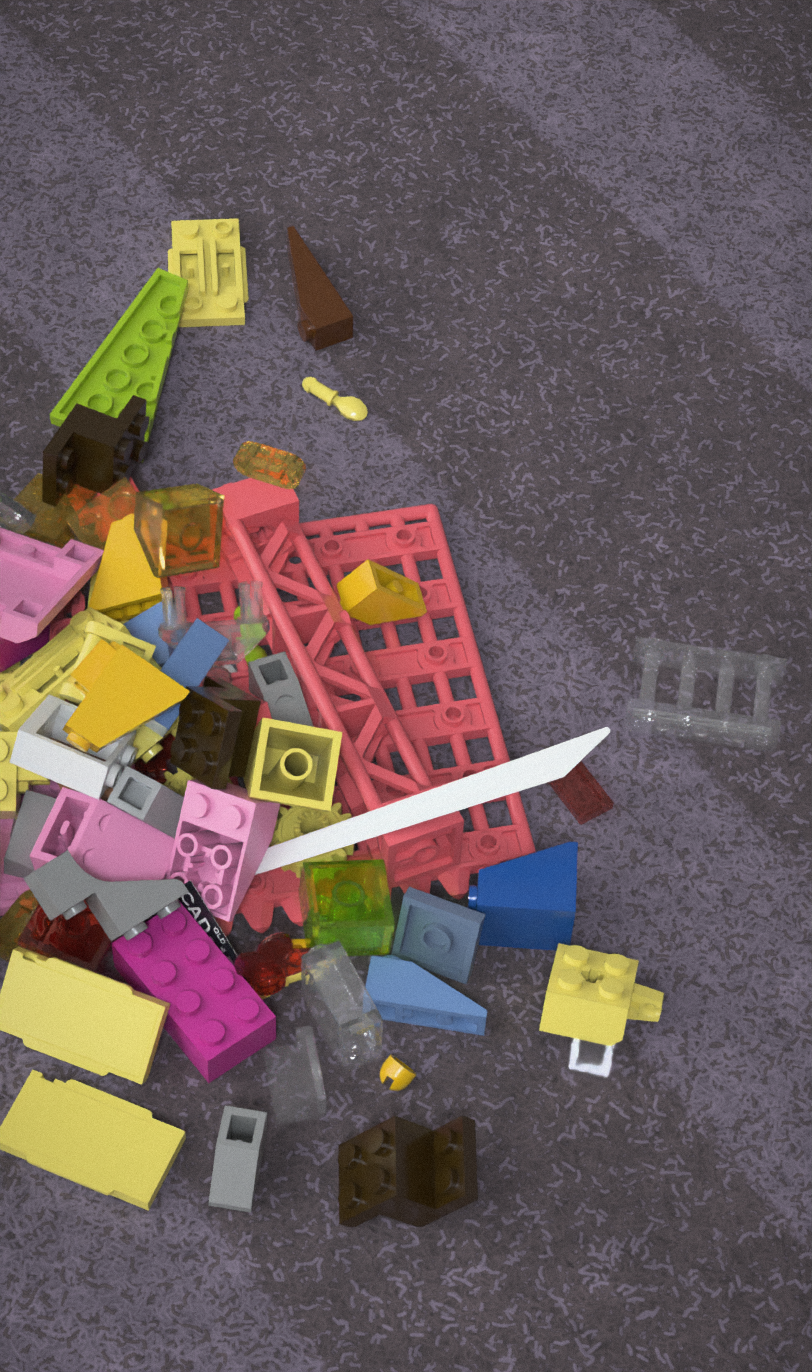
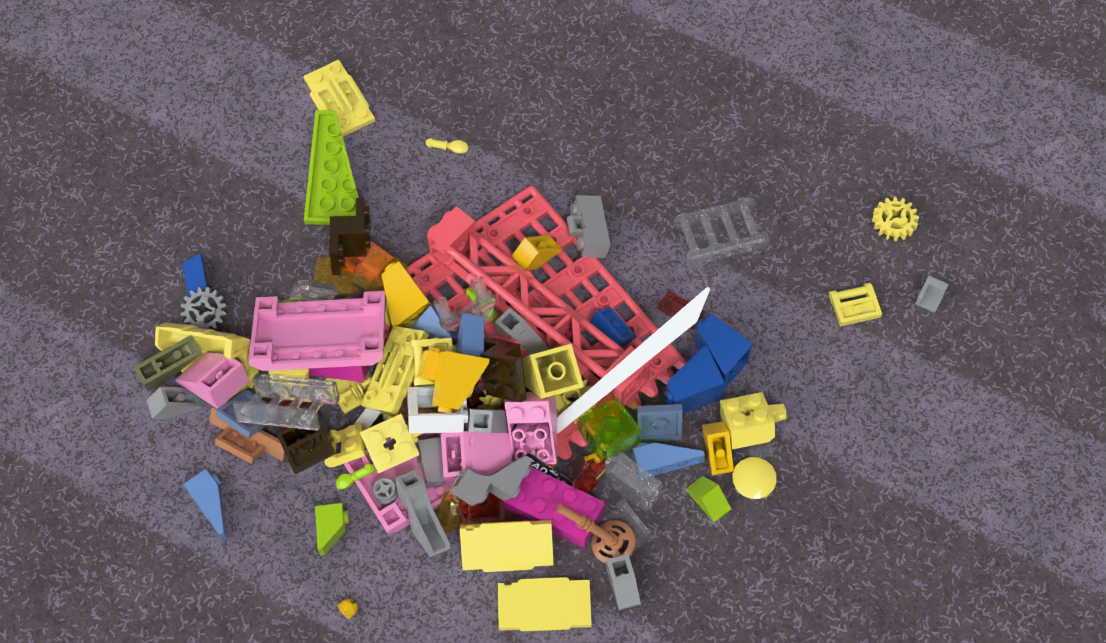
camera: 20 degrees left, 10 degrees up
(179, 528) = (420, 262): clear yellow slope -> none
(253, 1078) = (607, 537): none -> nougat dish
(269, 465) = (451, 208): clear yellow beam -> none
(321, 311) = (412, 96): reddish brown slope -> none
(397, 1071) = (673, 500): yellow hinge -> none
(407, 1172) = (707, 551): dark brown bracket -> none
(440, 752) = (613, 326): none -> blue slope
(461, 1090) = (709, 498): none -> lime slope
(497, 585) = (592, 227): none -> light grey piece
(518, 1021) = (718, 447): none -> yellow slope
(556, 1096) = (754, 478): none -> light yellow dish
(612, 869) = (726, 346): none -> blue slope

